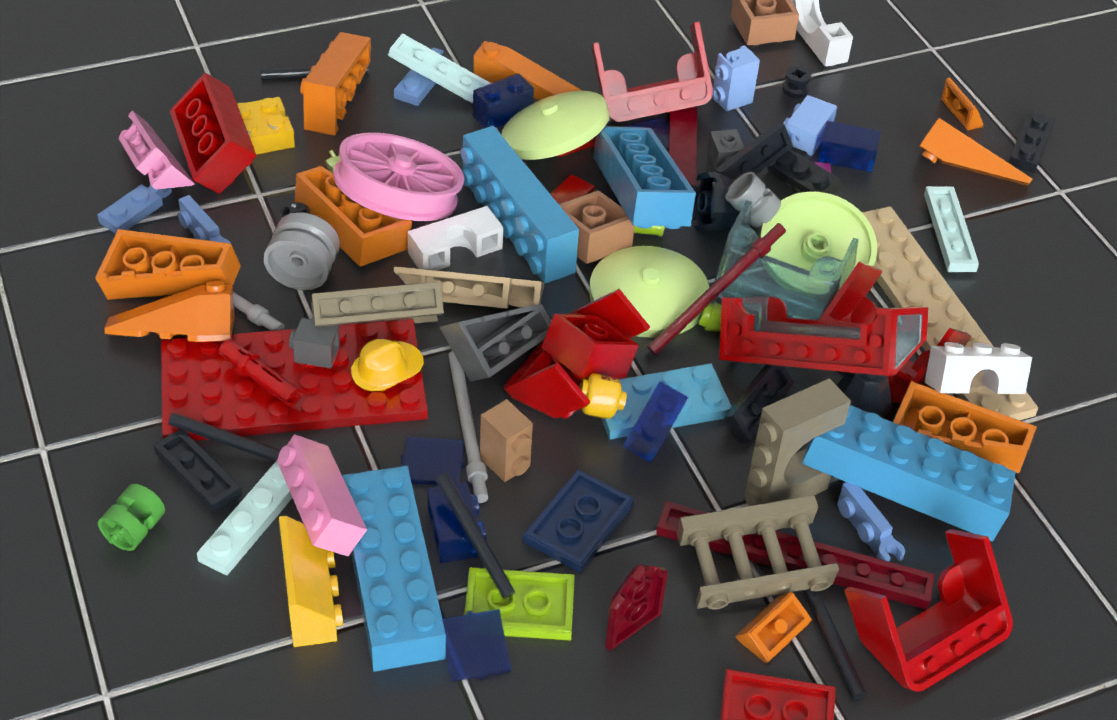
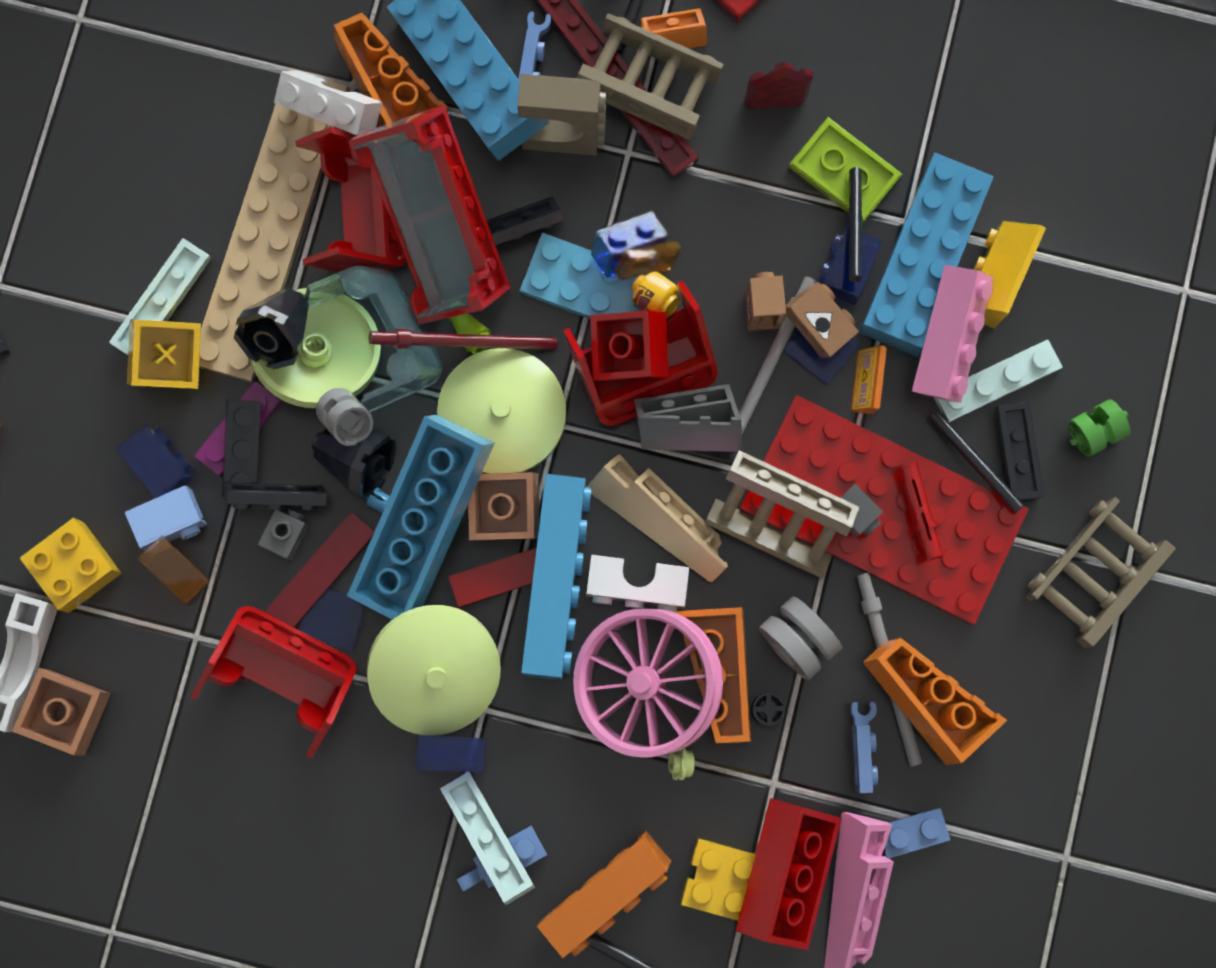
camera: 145 degrees left, 35 degrees up
(43, 403) = (1111, 603): none -> dark tan fence
(199, 312) = (950, 633): orange wedge -> none
(366, 447) = (868, 380): none -> slope
(385, 364) = (805, 455): yellow piece -> none
(453, 452) = (821, 319): none -> medium nougat brick
(476, 645) = (904, 152): clear blue piece -> none
(499, 62) = (392, 802): orange wedge -> none
(578, 520) = (746, 213): dark blue tile -> none
(629, 420) = (648, 259): none -> clear orange tile
(735, 78) = (192, 620): light blue hinge -> none
(775, 101) = (173, 569): none -> clear orange tile
(797, 81) = (122, 598): black wheel -> none
(839, 76) = (70, 565): none -> yellow brick
(855, 215) = (274, 329): none -> black cone
(911, 186) = (163, 354): none -> yellow brick
(958, 150) = (55, 383): orange wedge -> none

